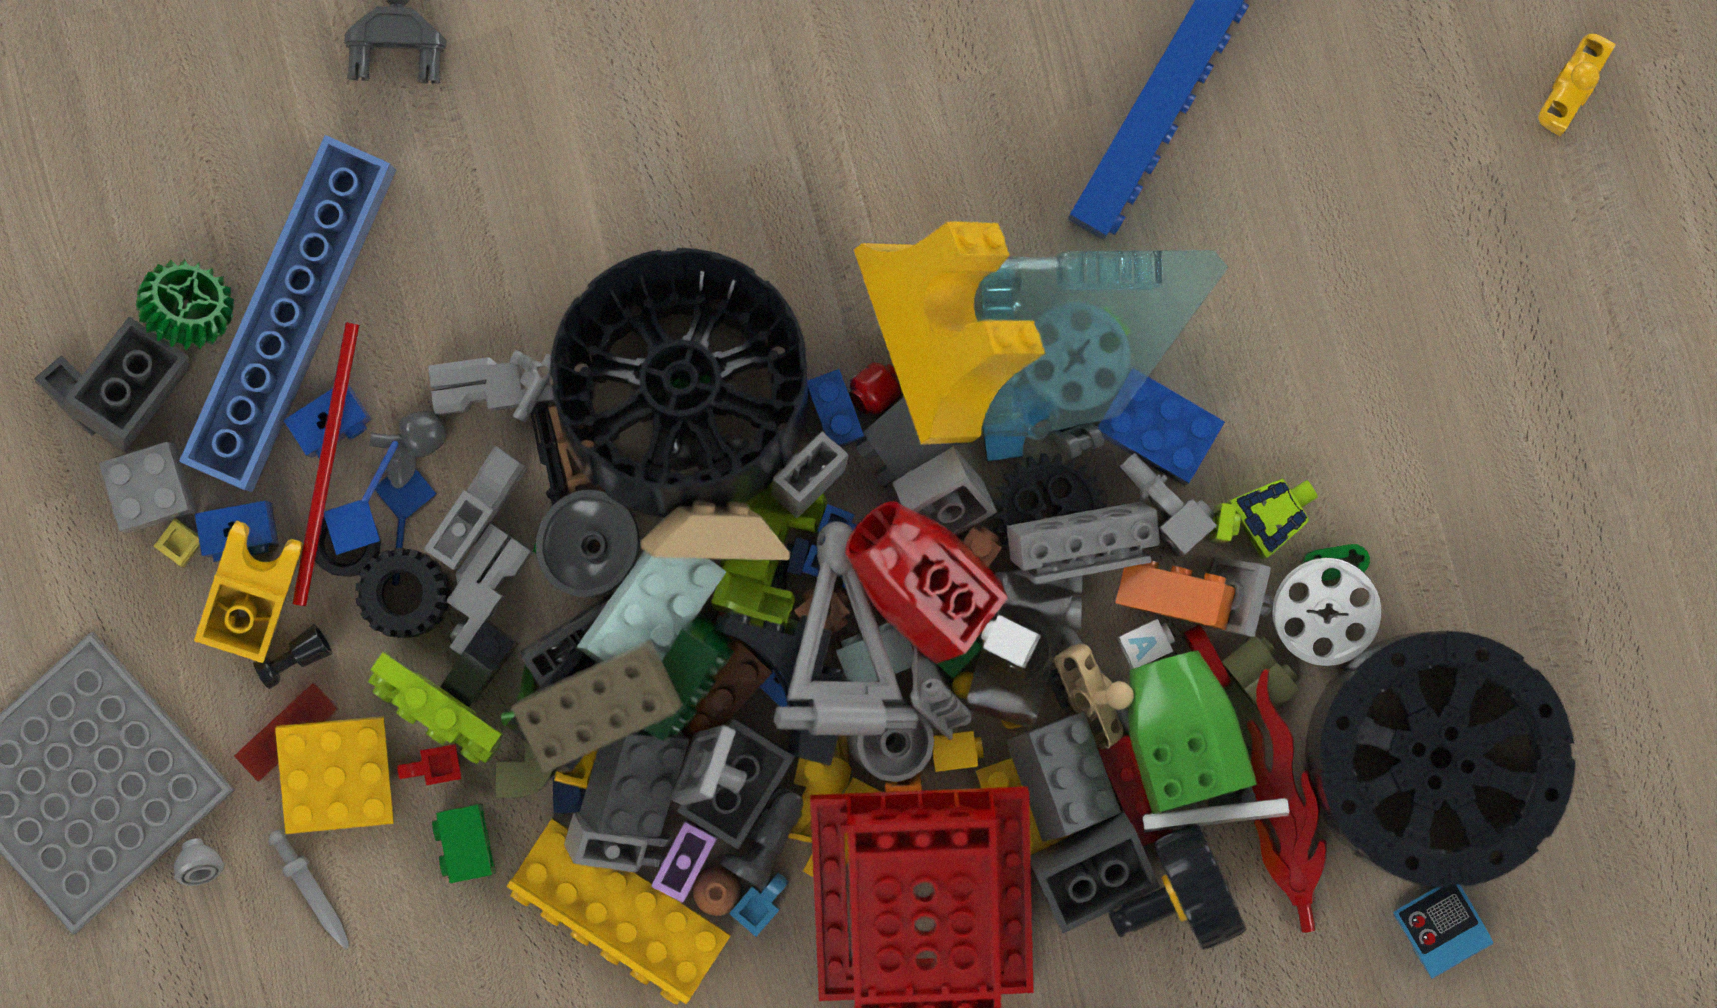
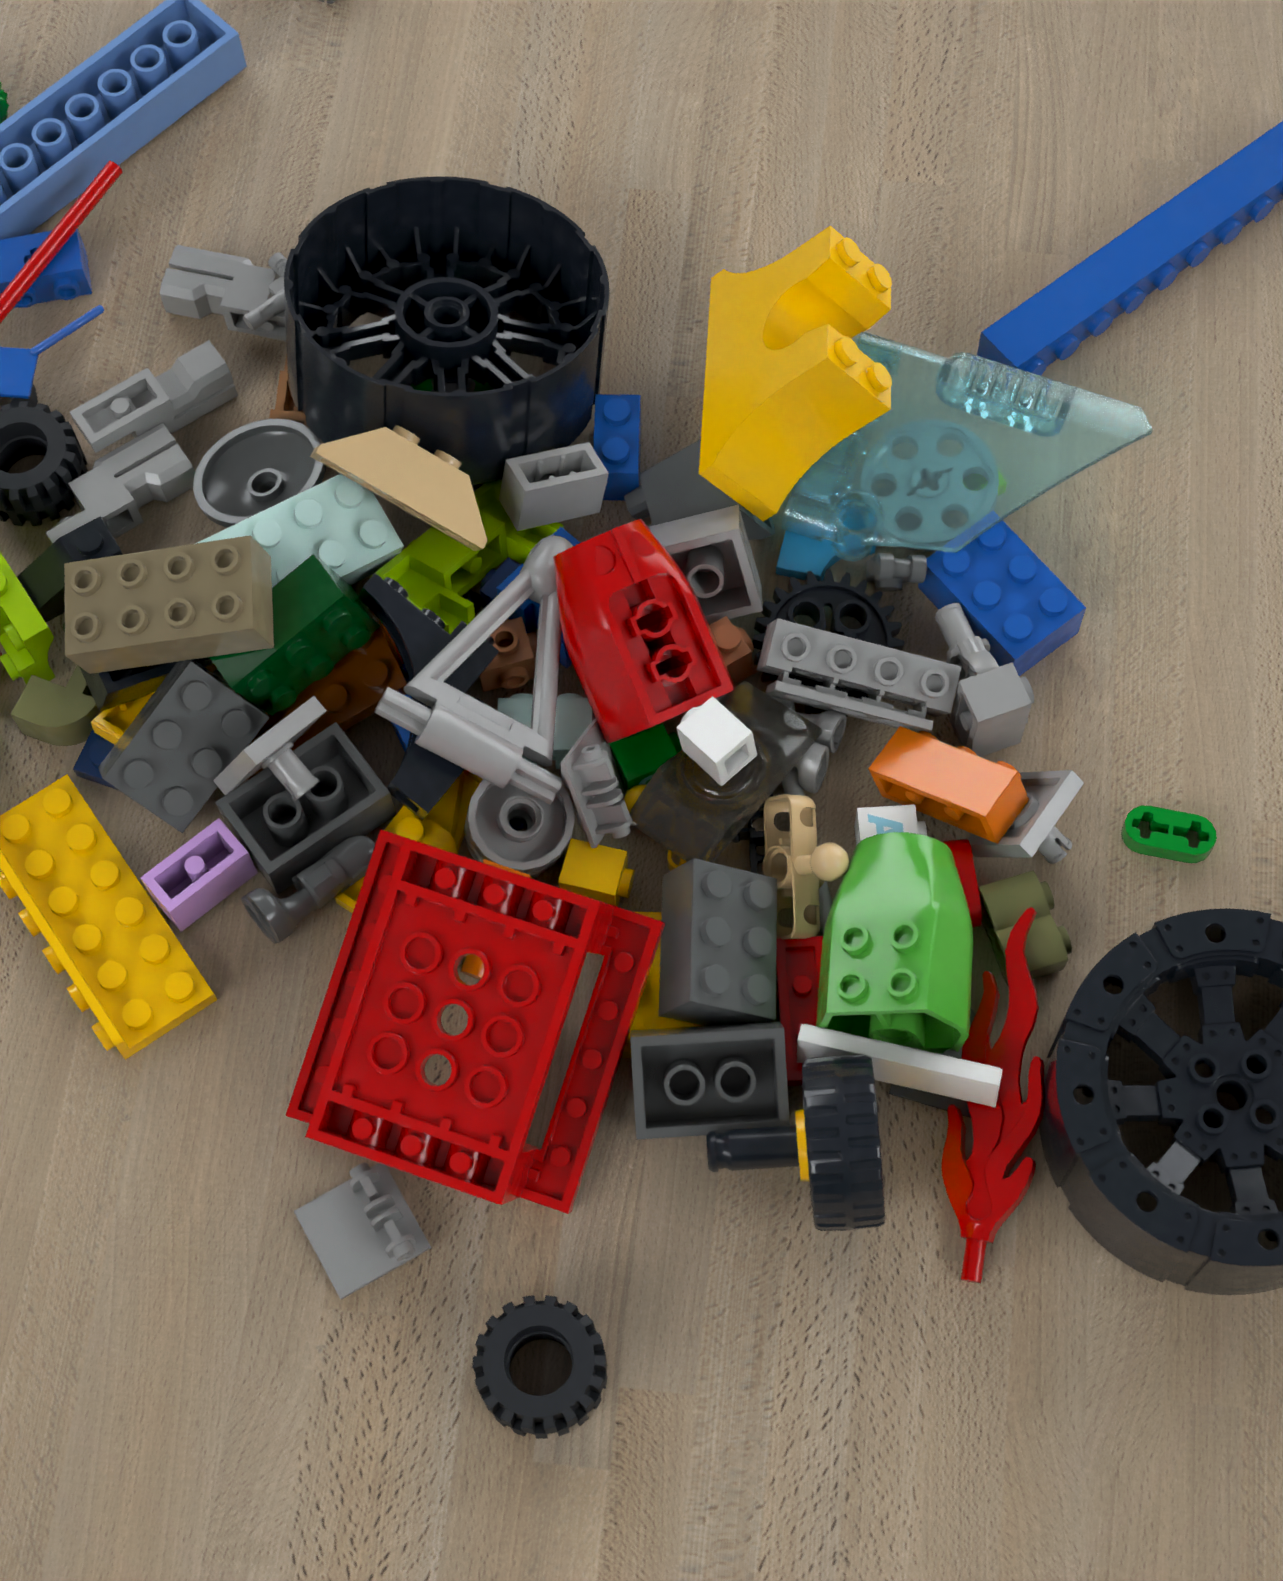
camera: 25 degrees right, 20 degrees down
(404, 503) = (84, 378): blue piece -> none
(419, 436) = (132, 318): dark grey piece -> none
(548, 453) = (268, 376): black piece -> none
(611, 850) = (118, 818): light grey hinge -> none
(717, 891) = (224, 937): nougat brick -> none
(757, 907) = (263, 971): dark azure plate -> none
(875, 388) = (669, 435): red head -> none
(1227, 523) = (1042, 724): lime plate -> none
(1273, 514) = (1108, 742): torso -> none
(1317, 598) = (1134, 857): white wedge -> none
(1443, 928) = (1159, 1347): slope -> none

